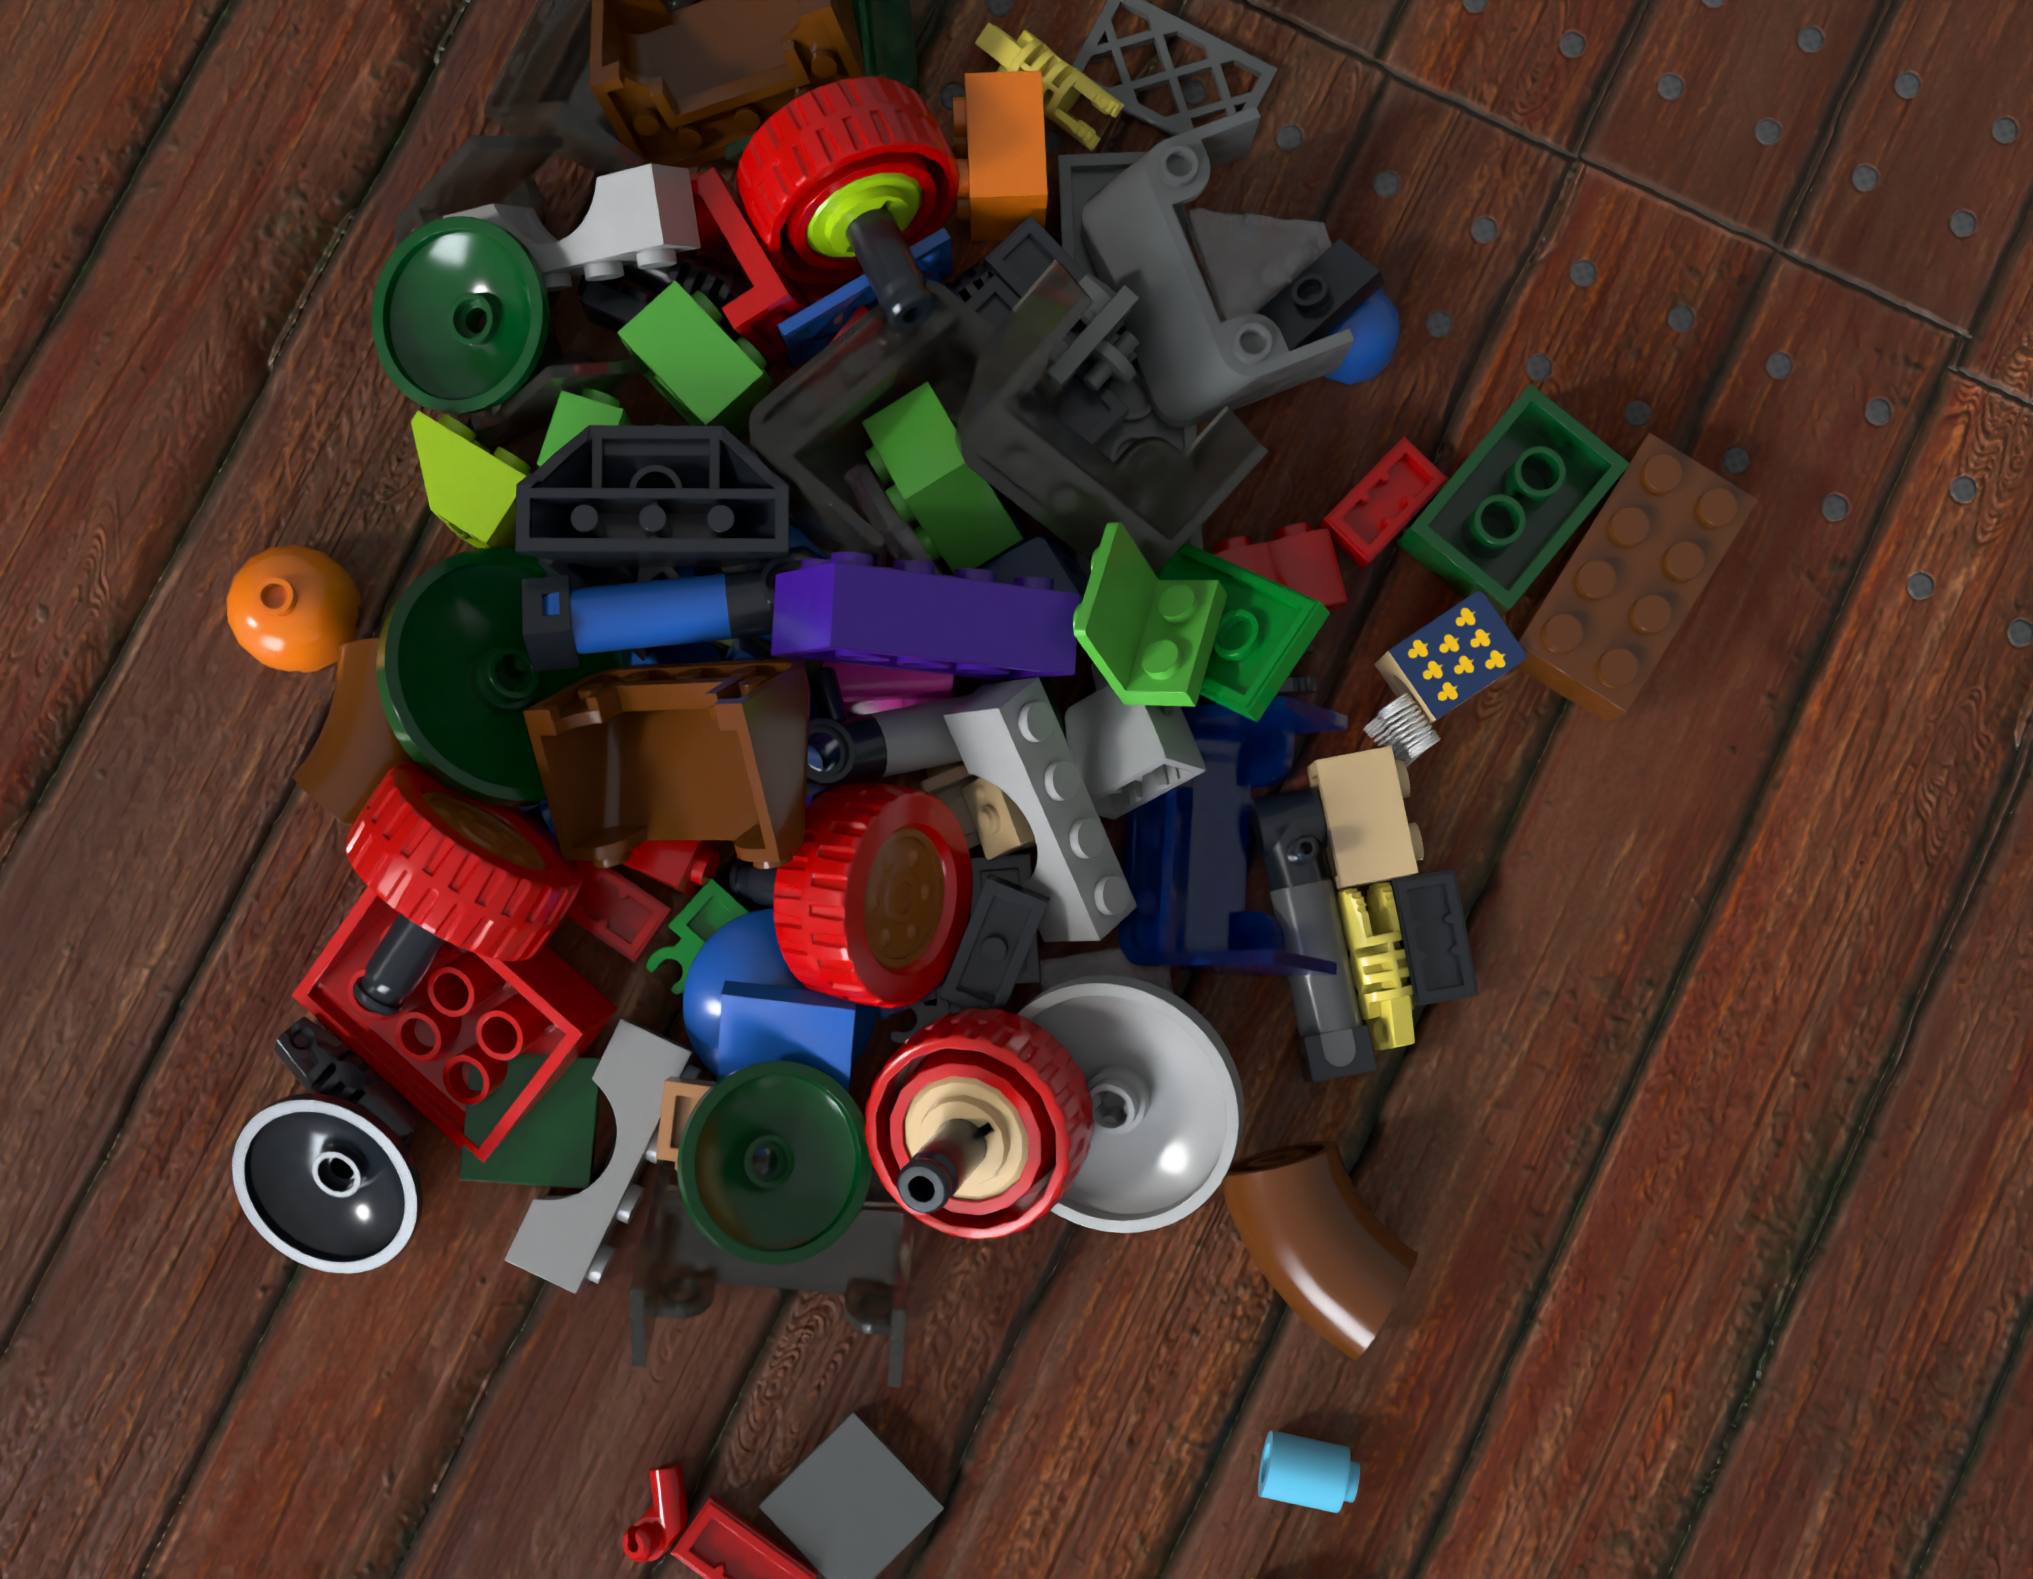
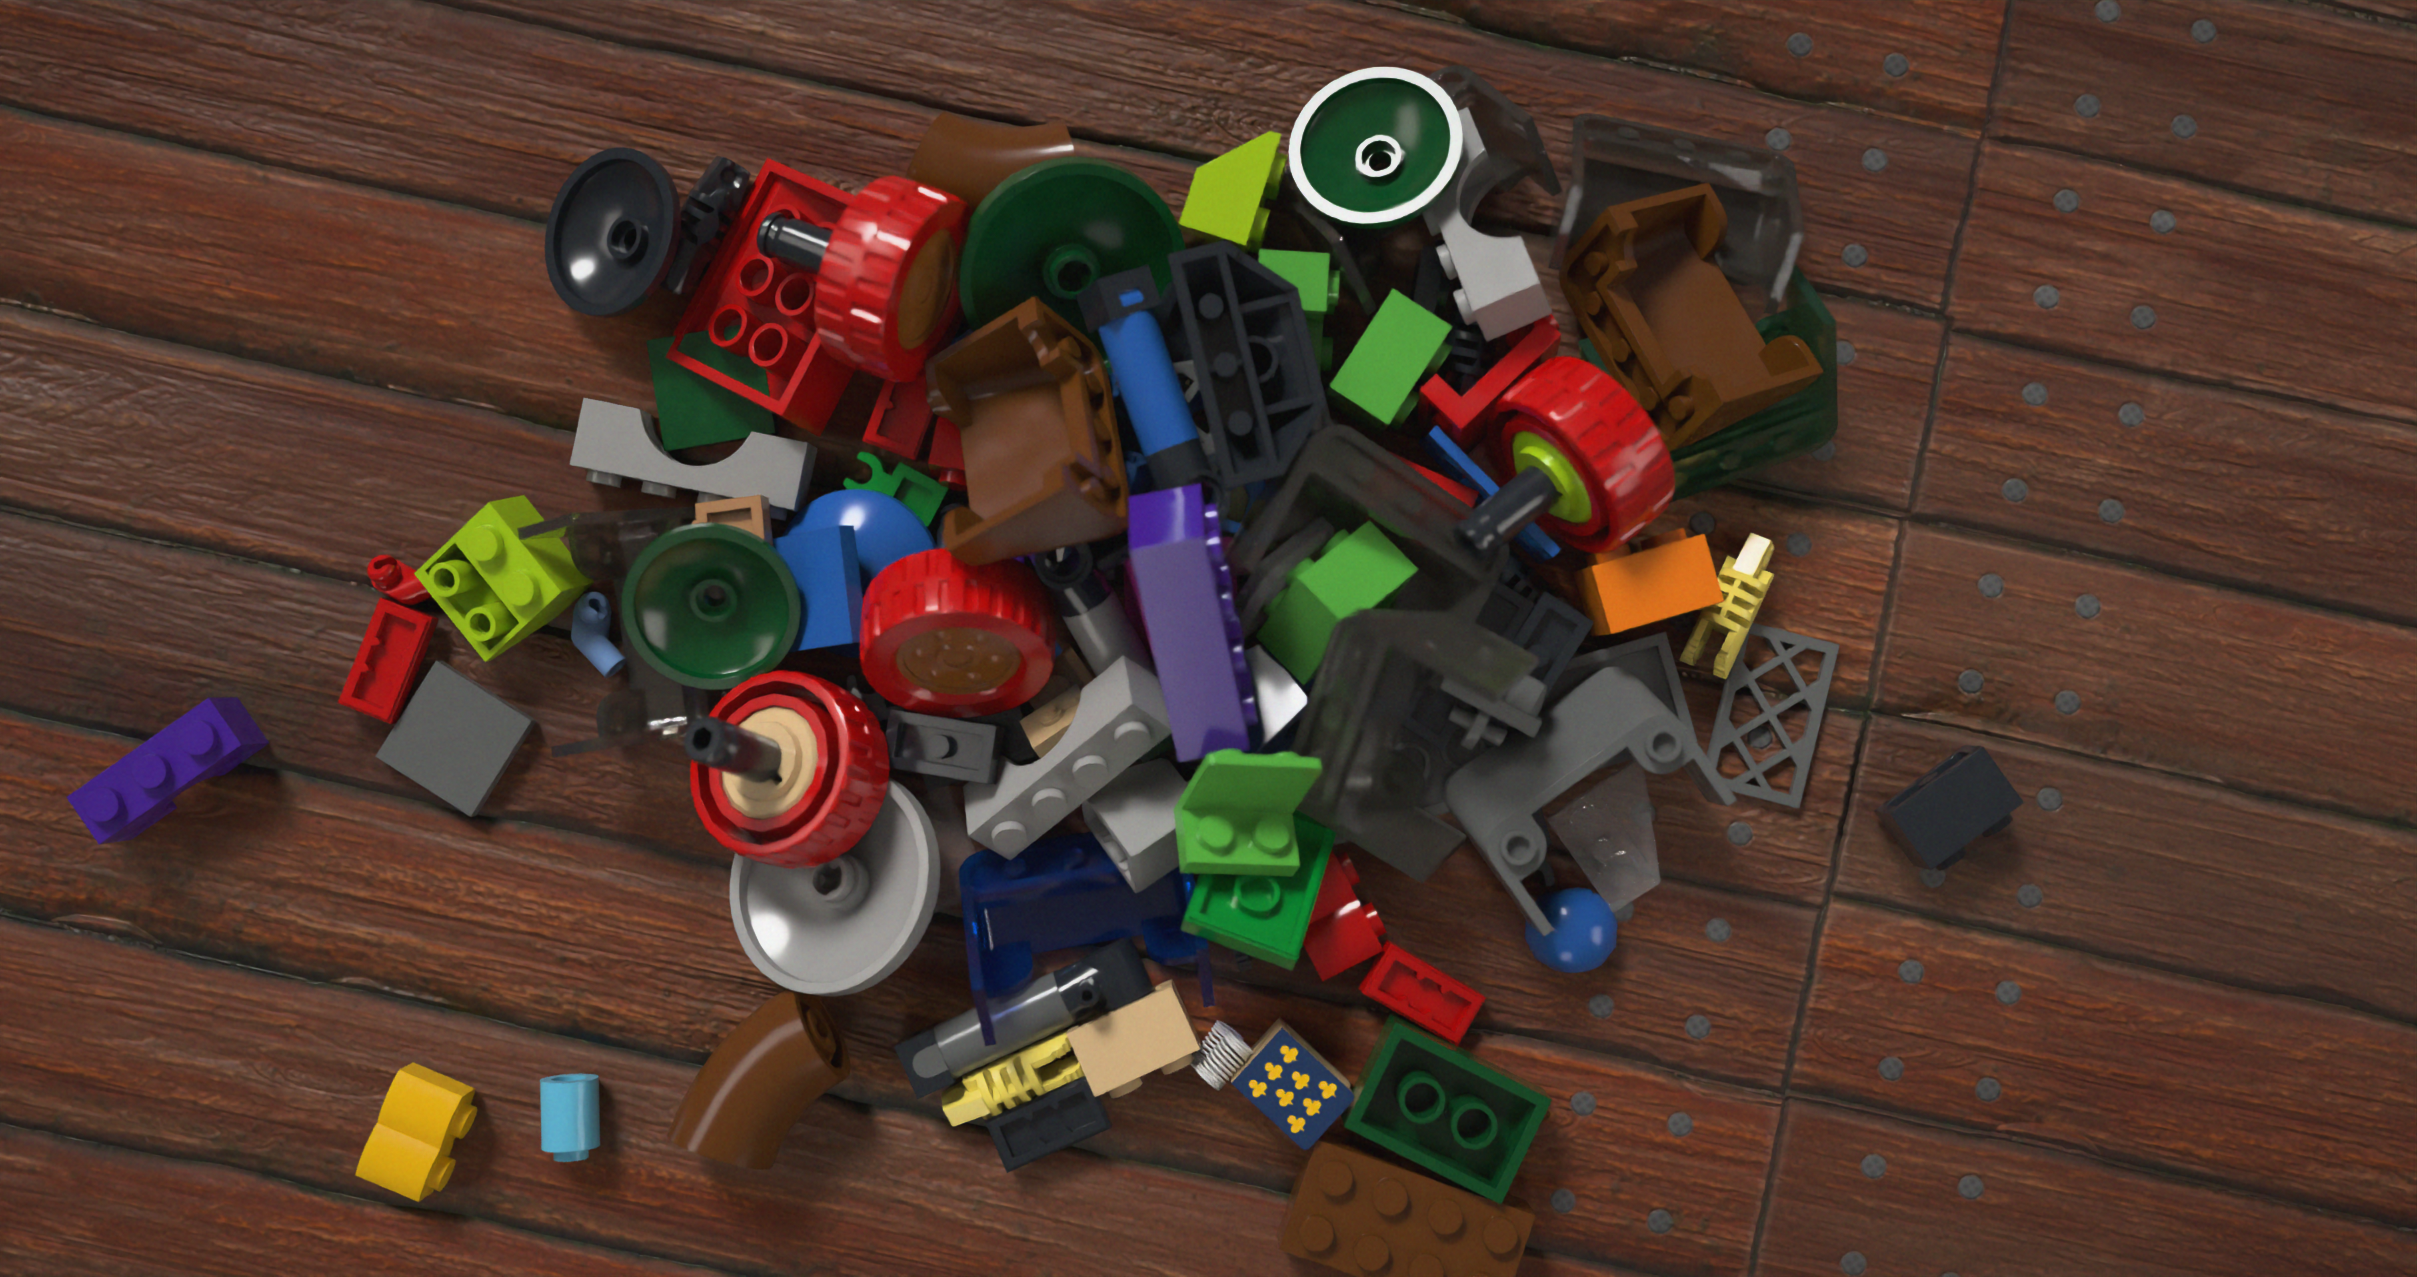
camera: 85 degrees right, 5 degrees up
(293, 608) = (1097, 69): orange cylinder -> none
(685, 1409) = (498, 584): none -> lime slope
(770, 1320) = (591, 633): none -> medium blue arm
(1323, 295) = (1584, 893): black plate -> none

